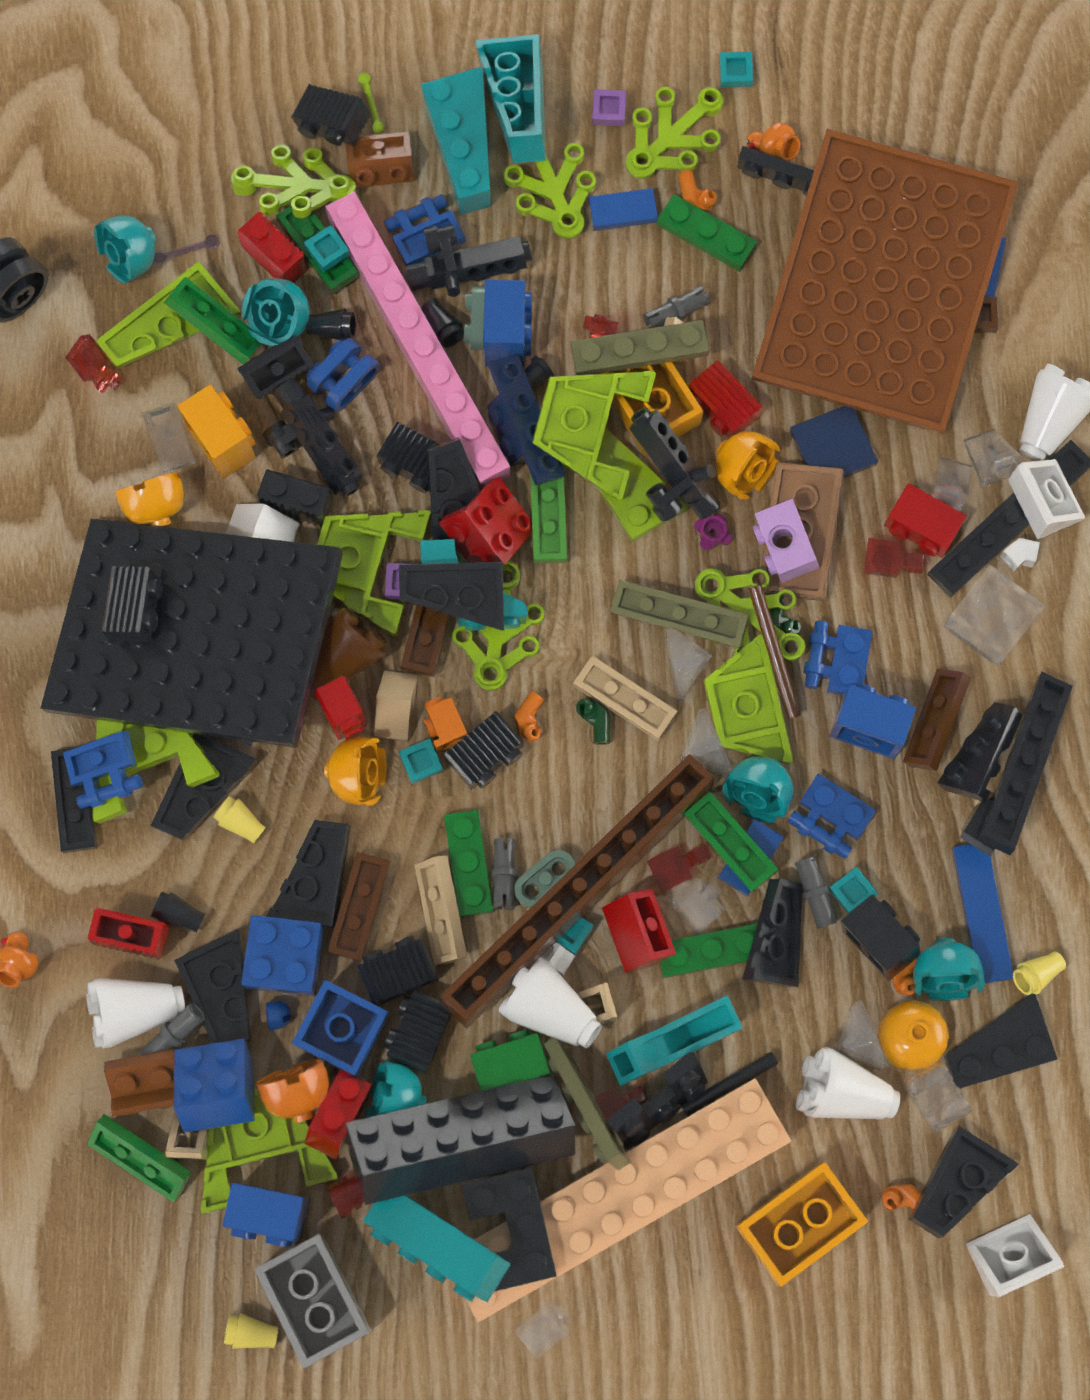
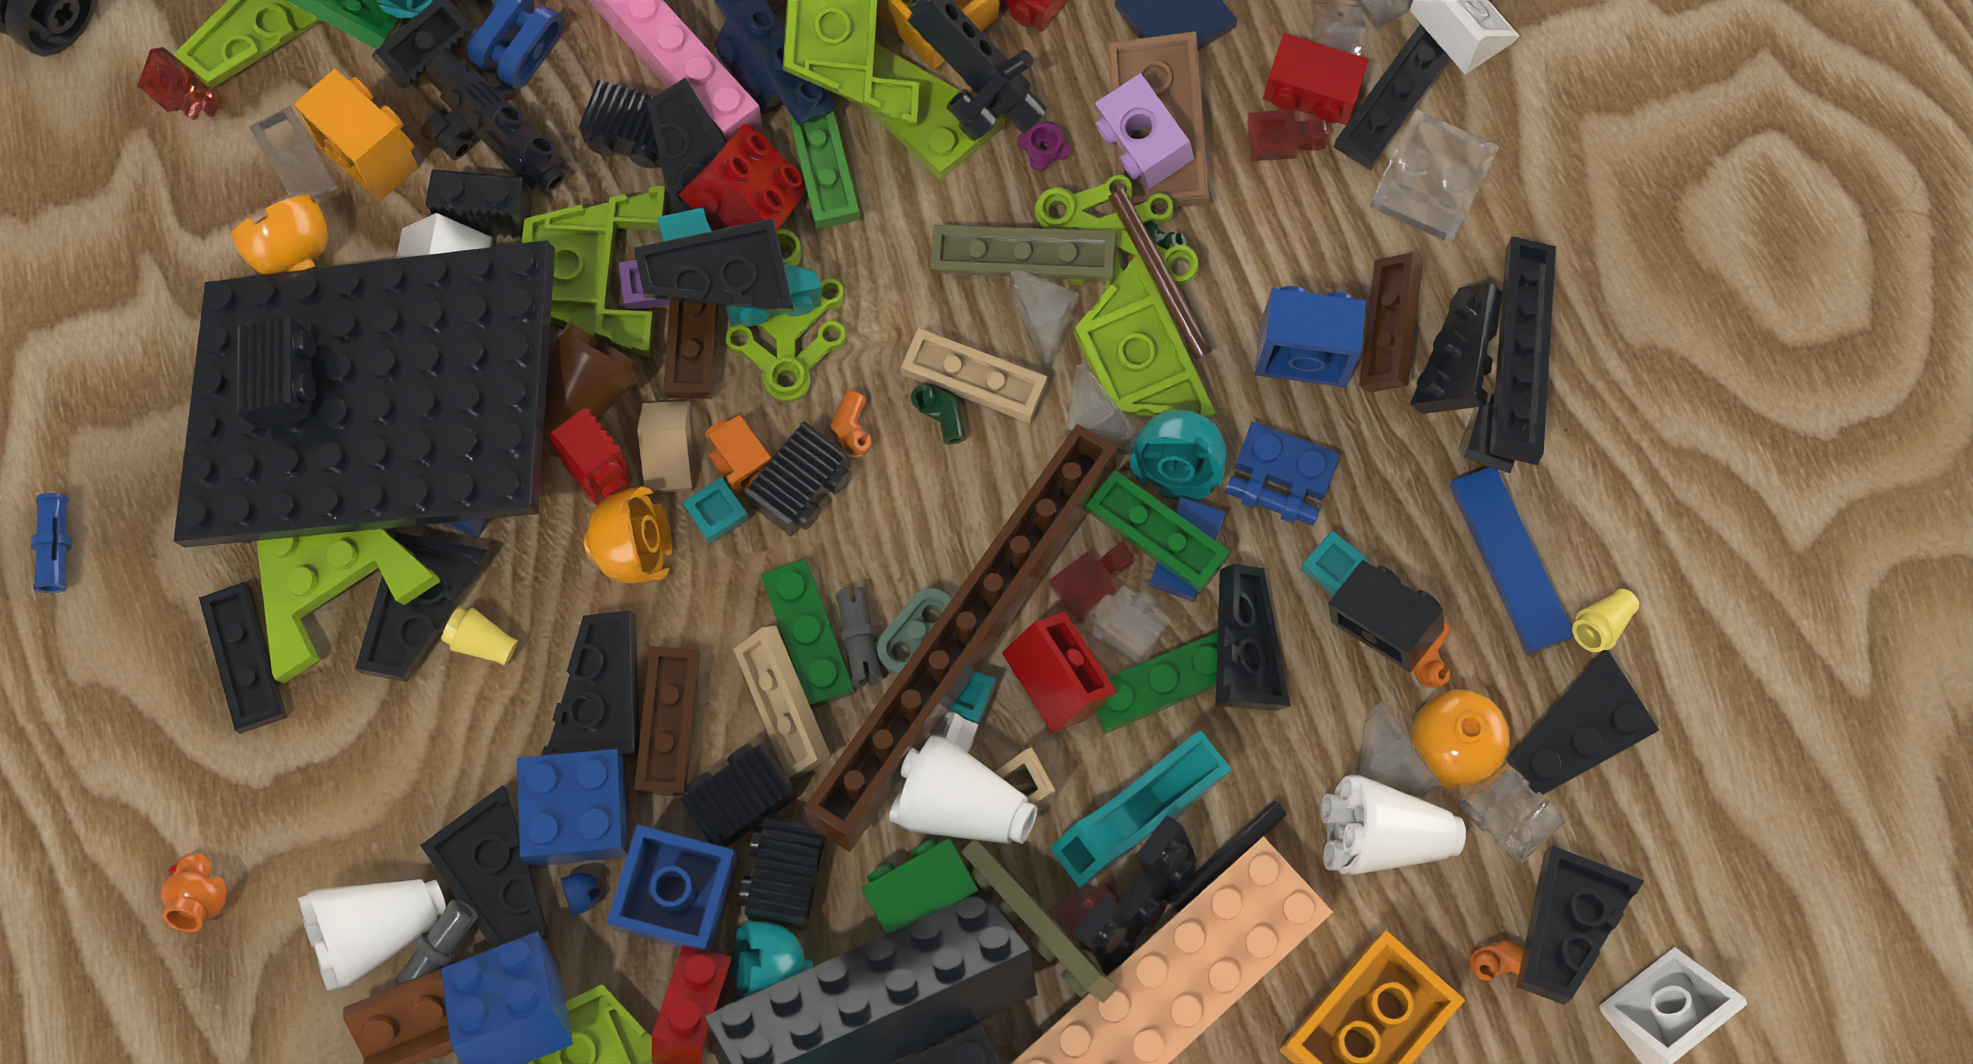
camera: 15 degrees left, 5 degrees down
(99, 759) = (264, 592): blue plate -> none
(128, 933) = (347, 820): red brick -> none
(177, 912) = (411, 779): black cone -> none
(295, 1091) = (624, 989): orange cylinder -> none
(745, 463) = (1068, 49): light orange cylinder -> none
(815, 892) = (1285, 576): dark grey pin -> none
(848, 659) = (1257, 270): blue plate -> none
(948, 971) = (1487, 642): teal cylinder -> none
(1021, 553) = (1447, 98): white piece -> none

